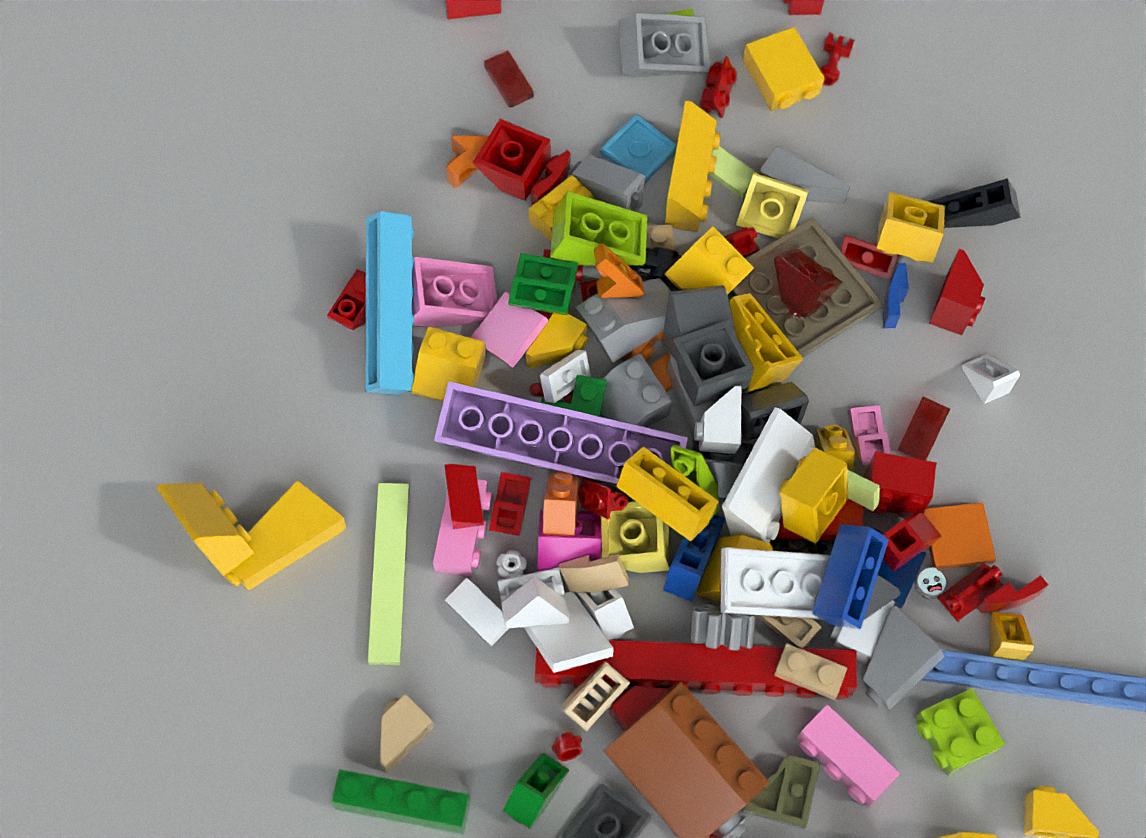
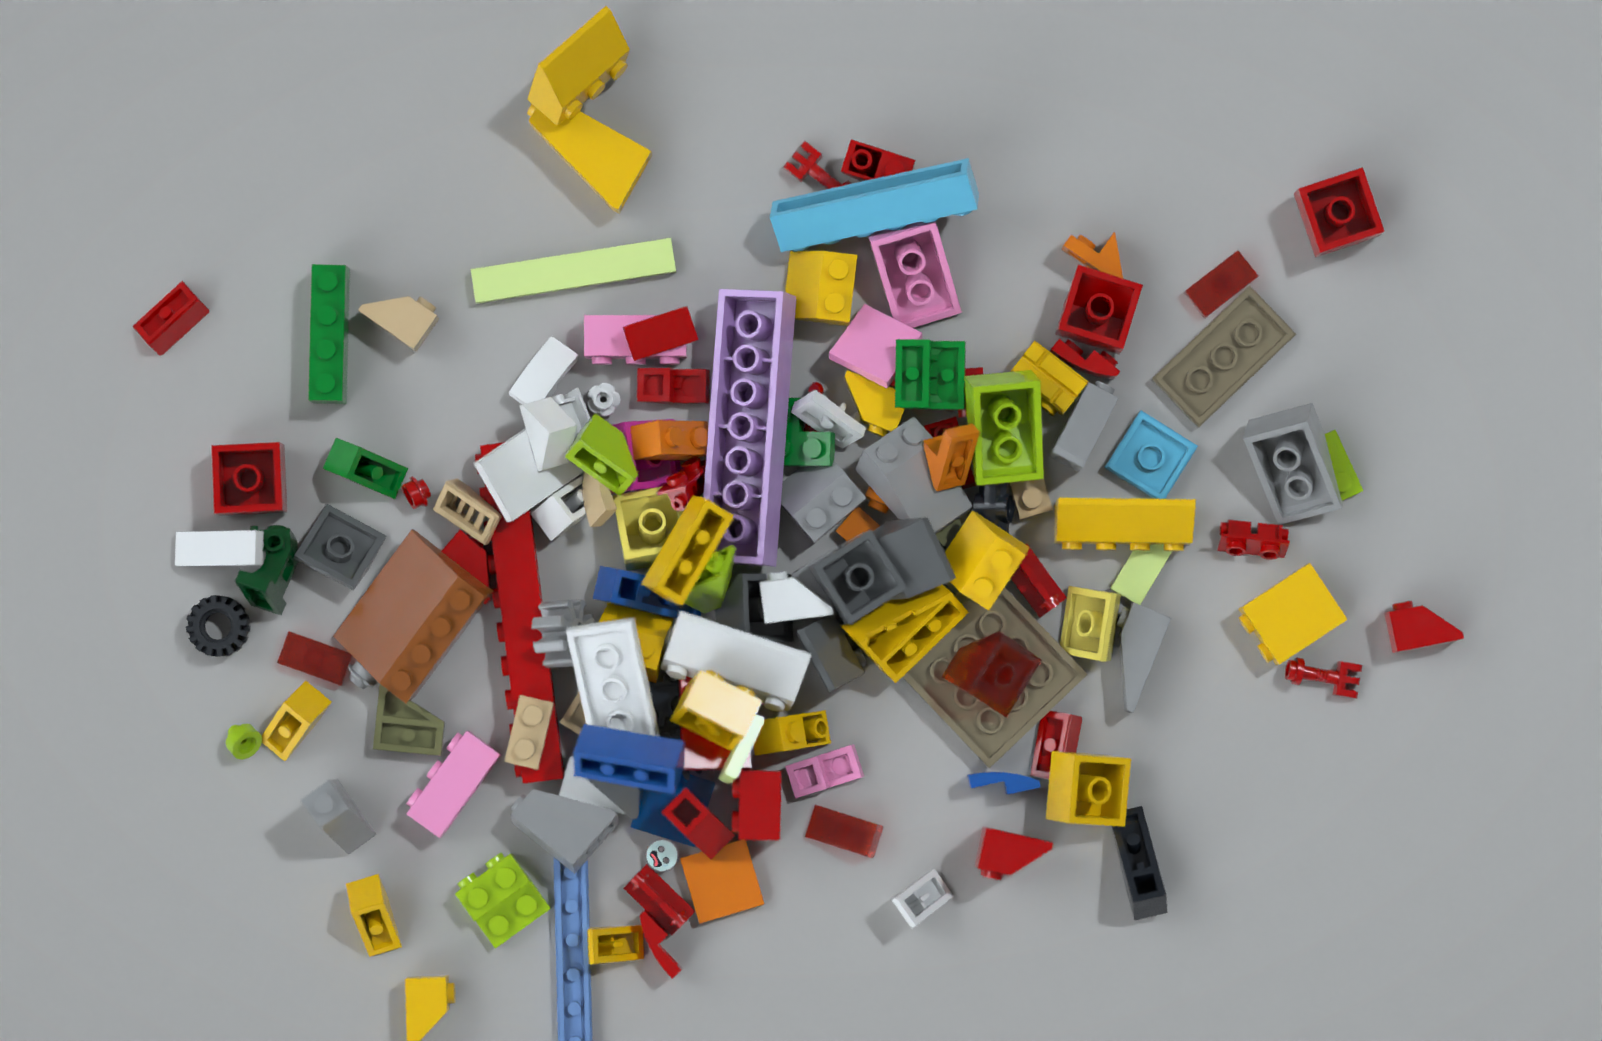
camera: 80 degrees right, 20 degrees up
(341, 363) = (810, 167): none -> red hinge
(565, 557) = (603, 454): none -> lime slope
(568, 87) = (1223, 356): none -> dark tan tile

